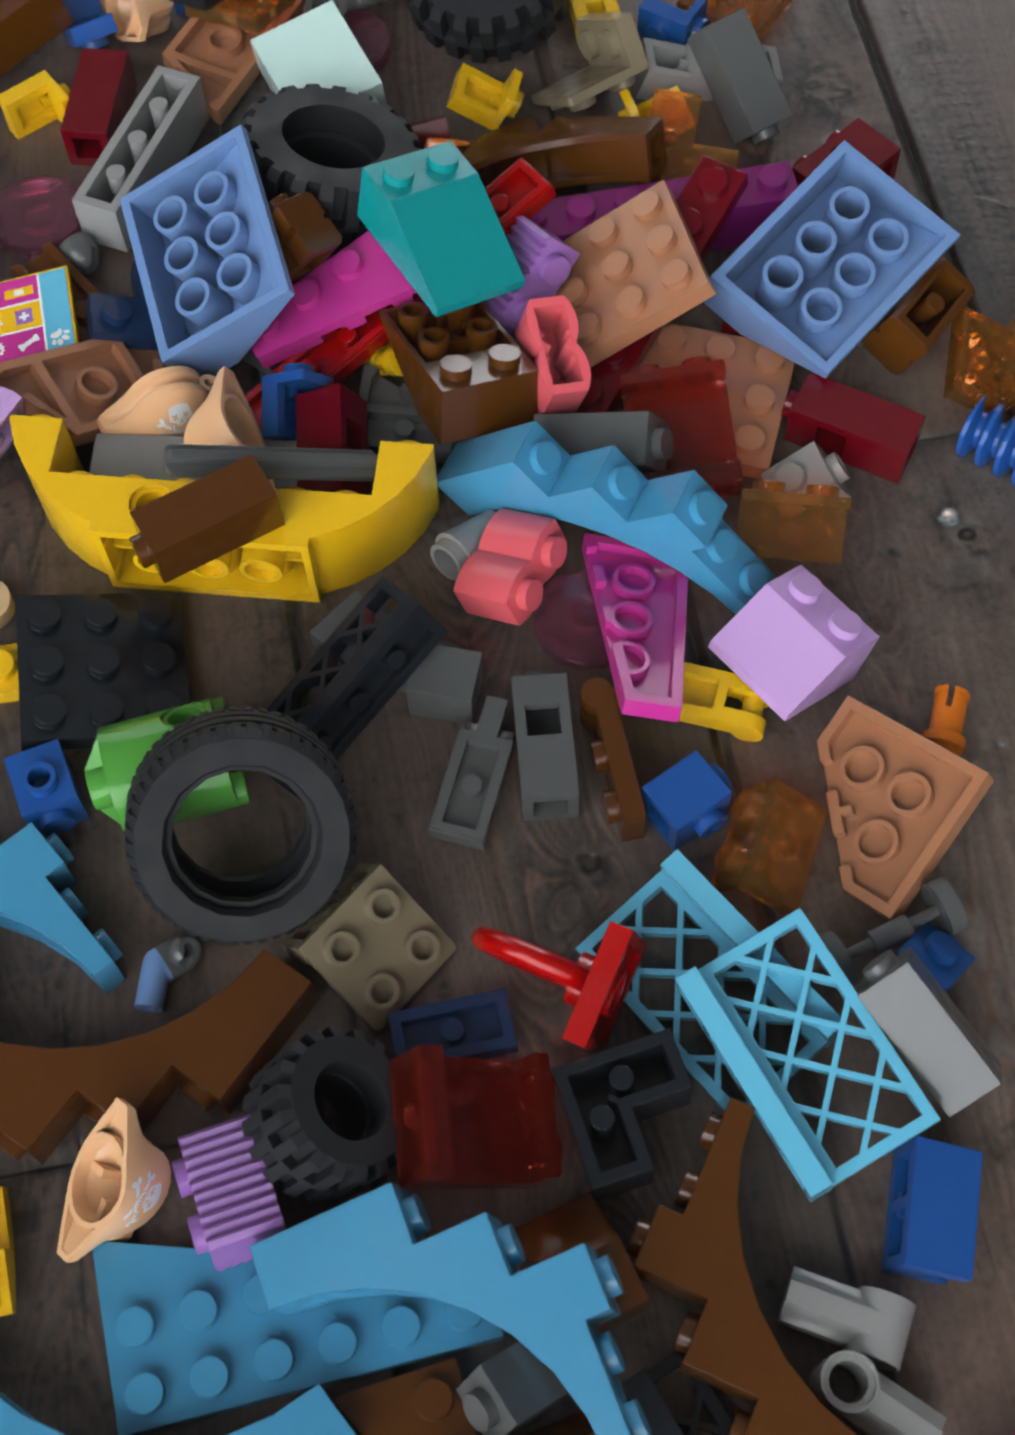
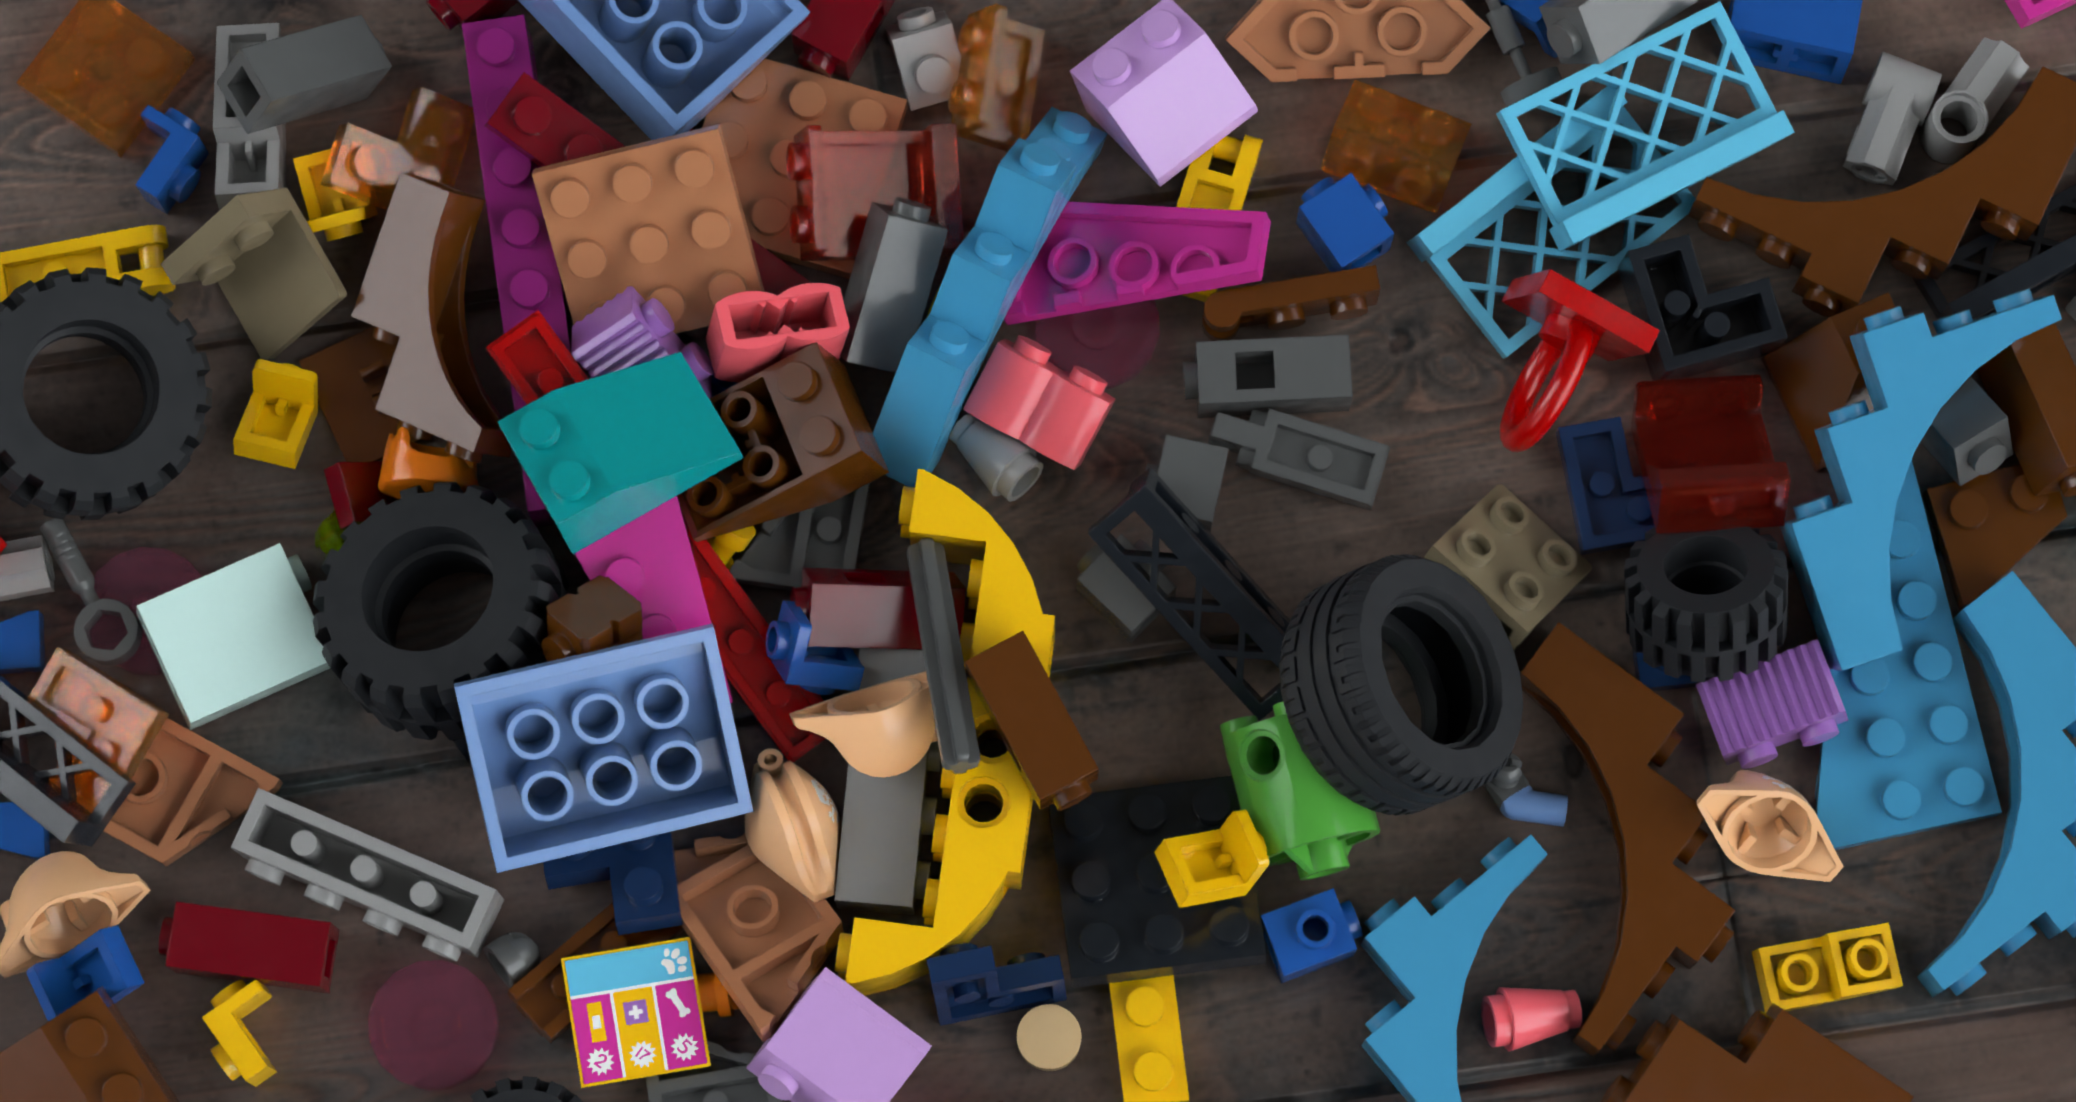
camera: 90 degrees left, 15 degrees up
(24, 534) = (972, 987): none -> dark blue plate
(95, 685) = (1214, 862): none -> yellow bracket

